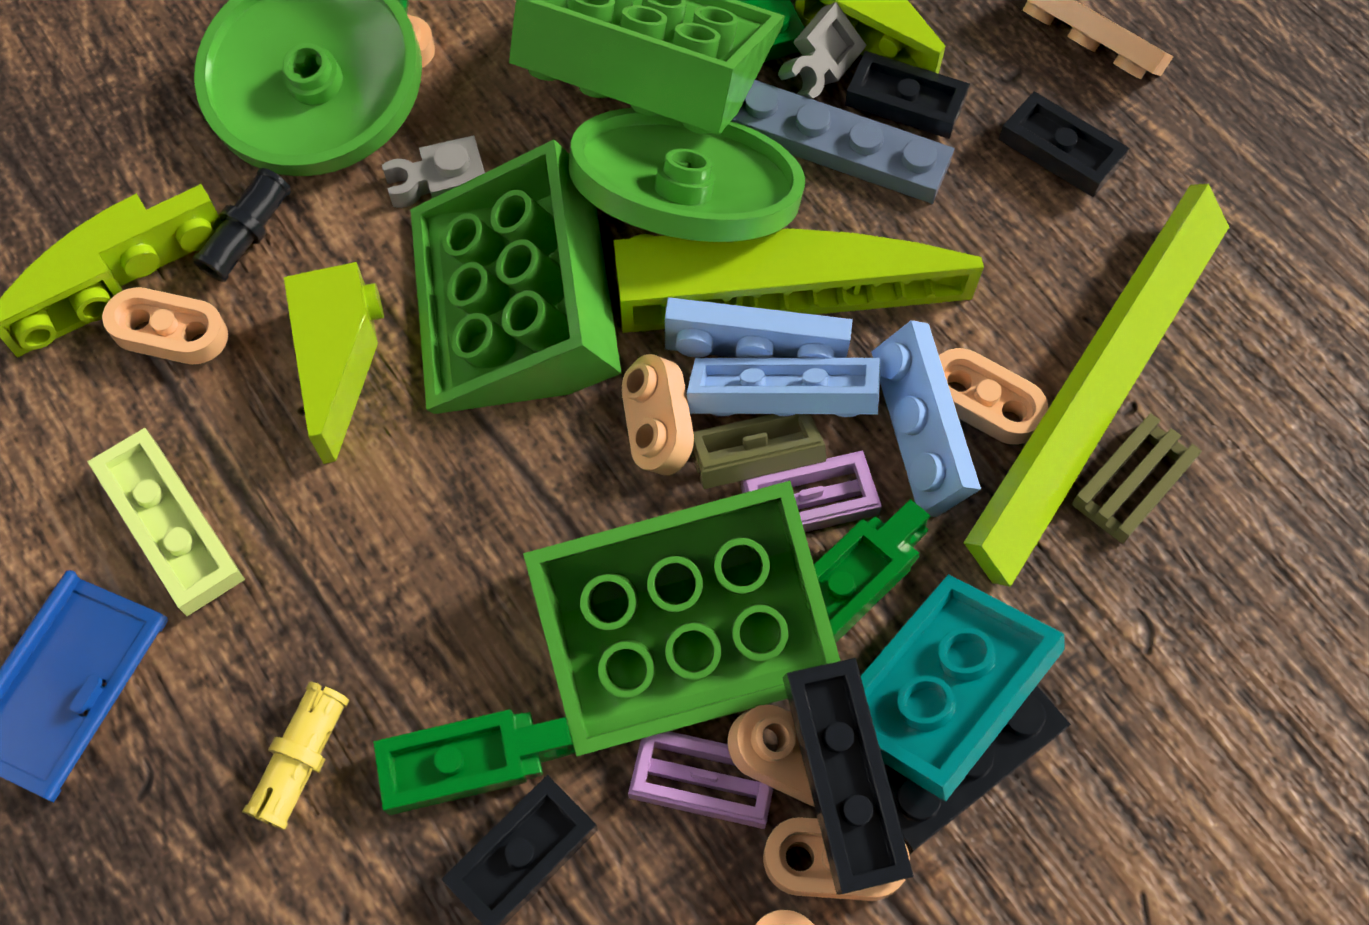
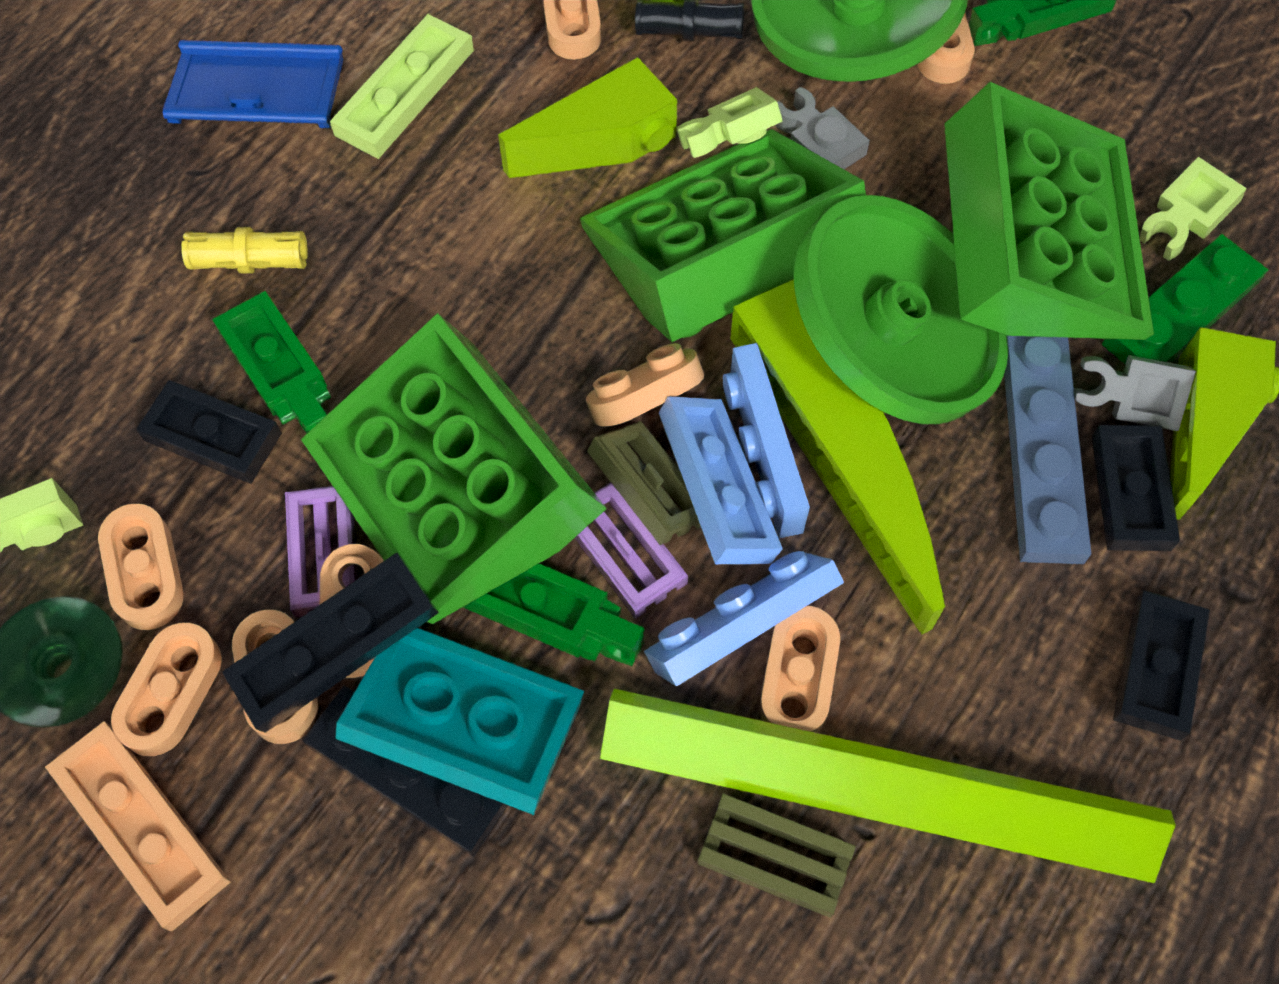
camera: 70 degrees right, 0 degrees up
(388, 229) = (735, 120): none -> yellowish green plate

